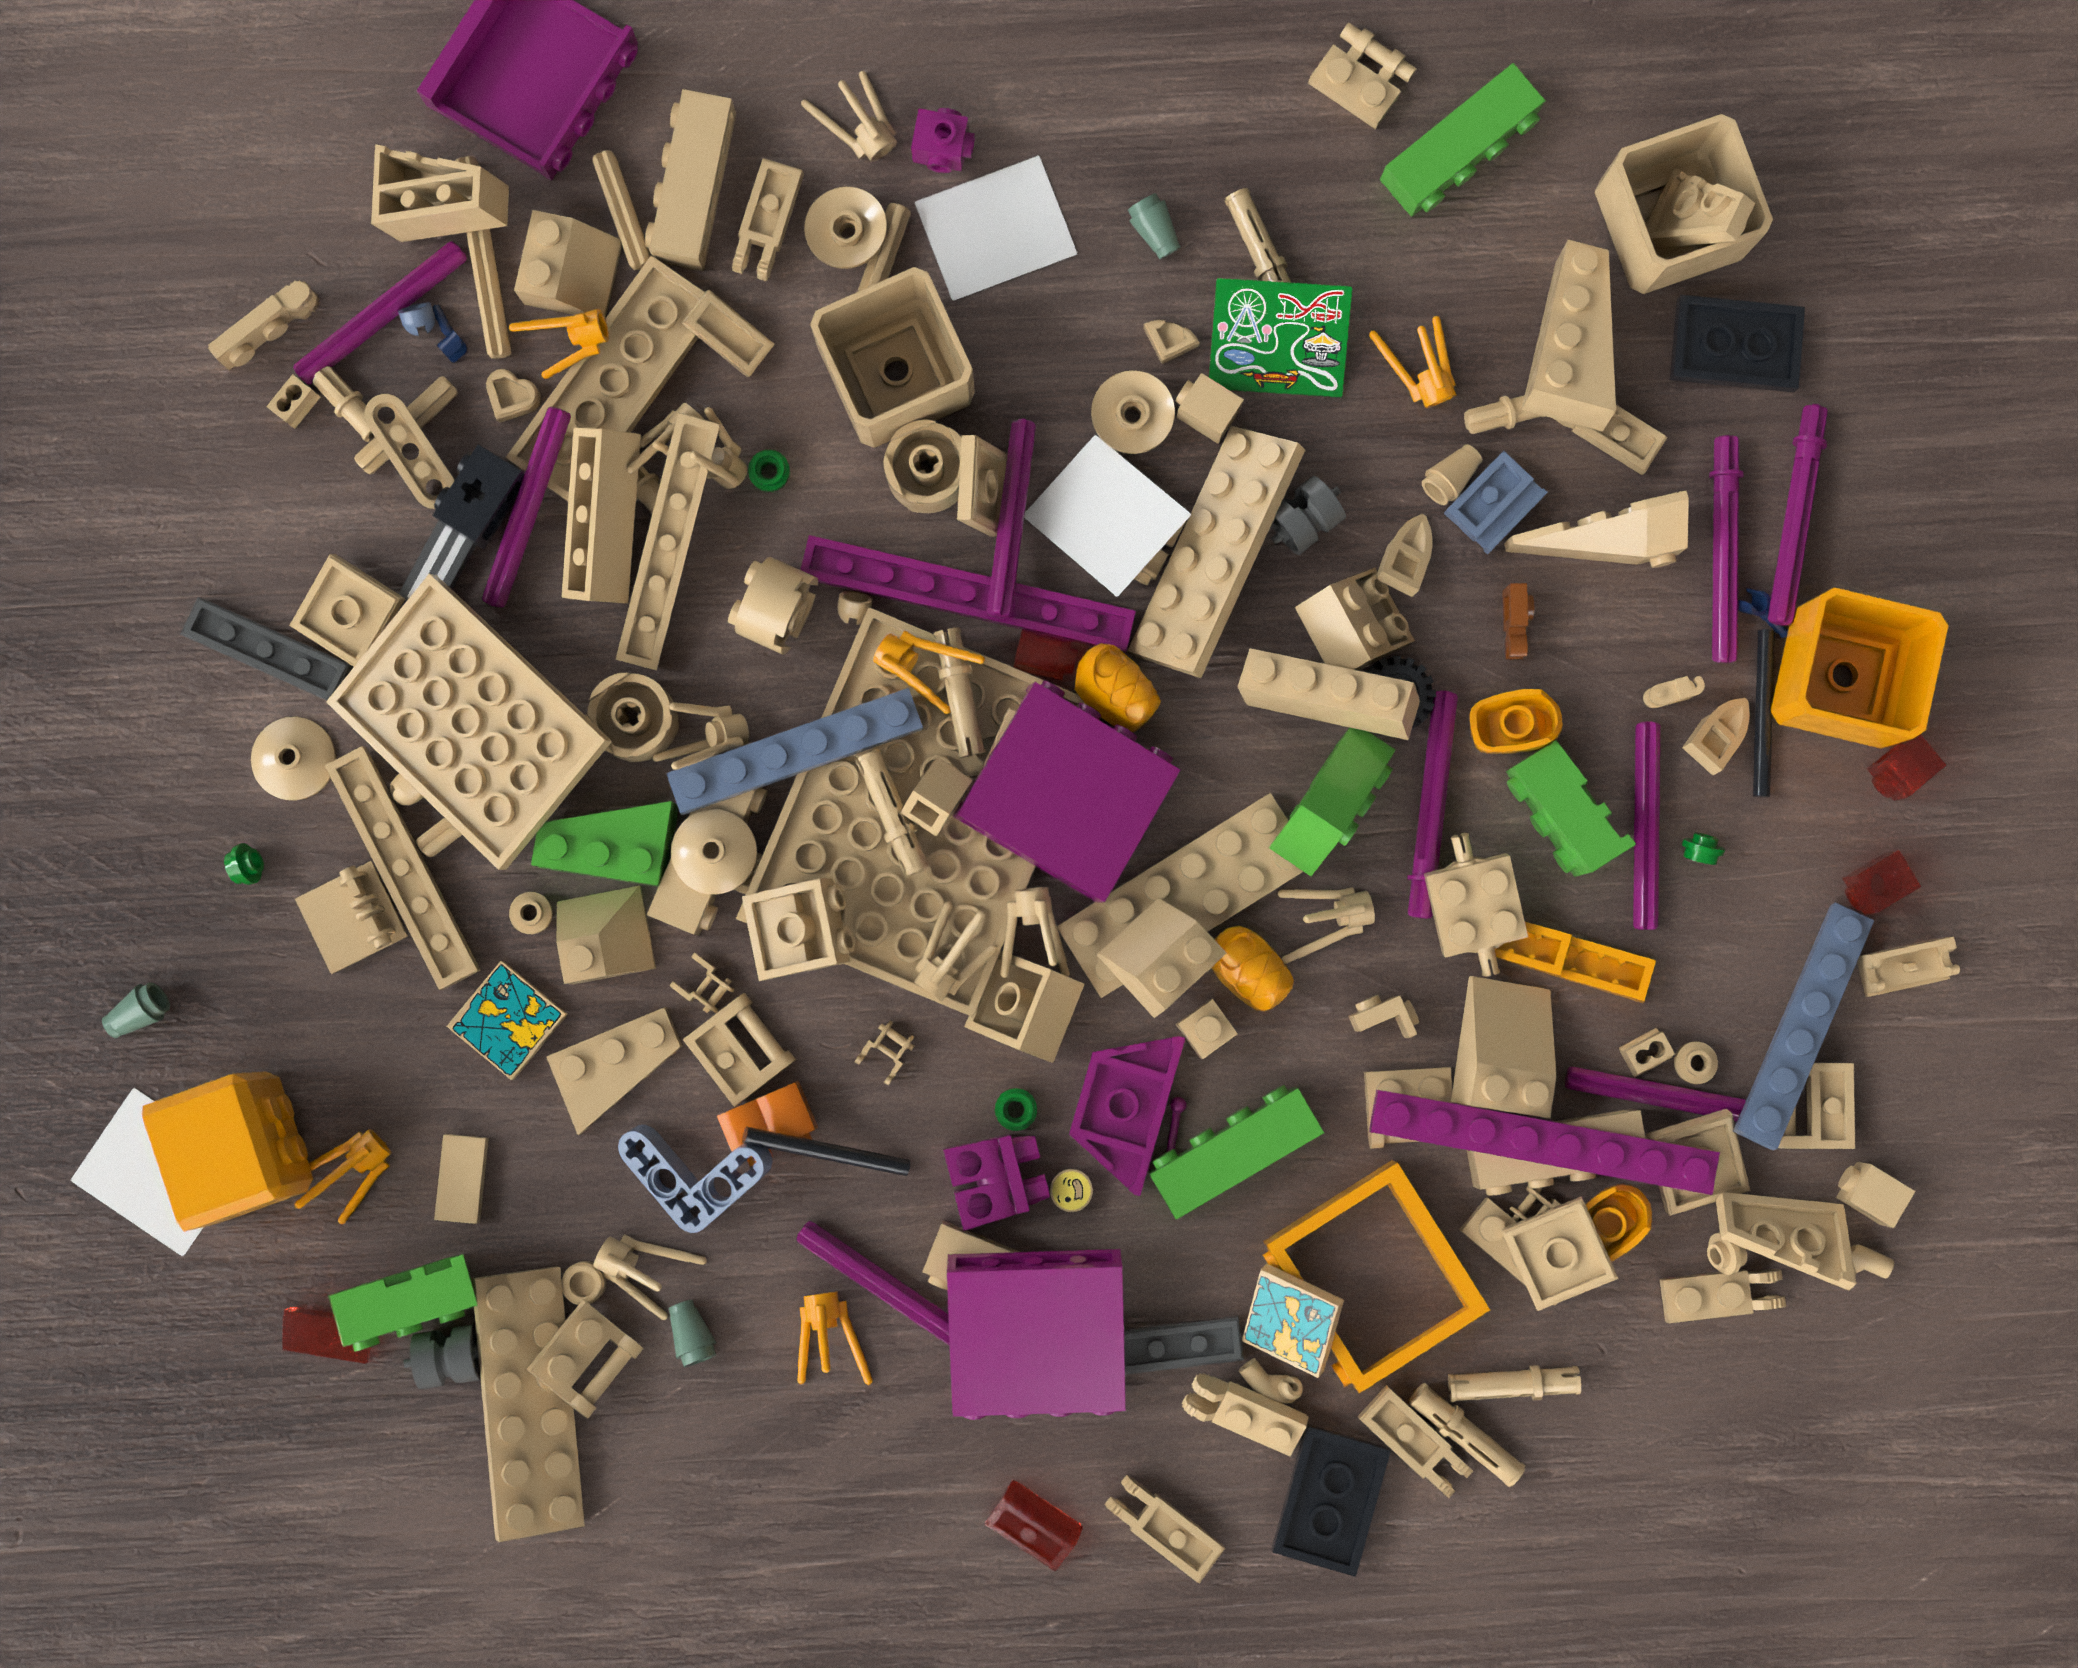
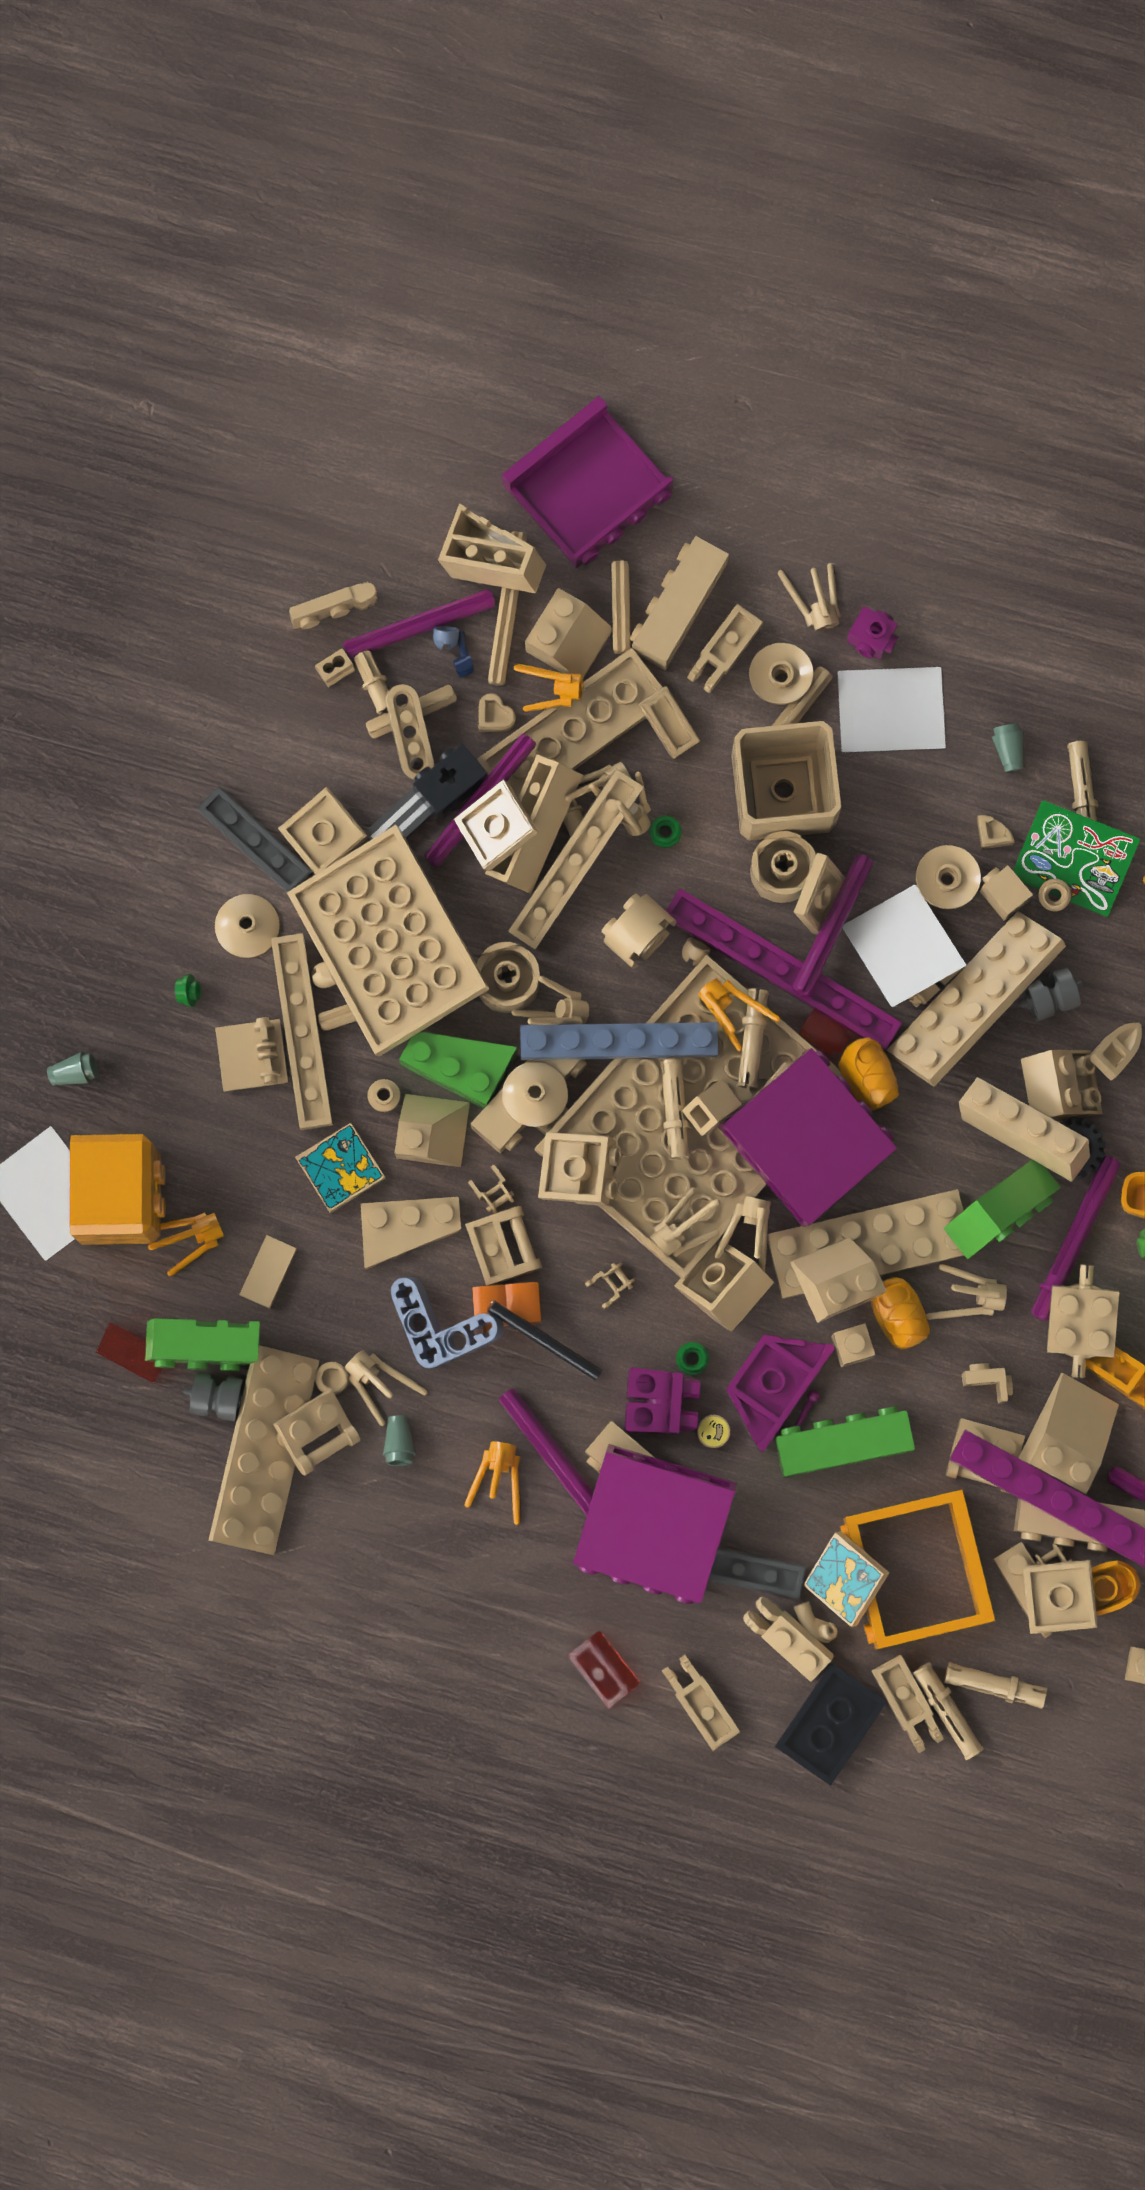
camera: 20 degrees right, 5 degrees down
(553, 533) = (496, 825): none -> tile
(1269, 404) = (1054, 905): none -> tan plate

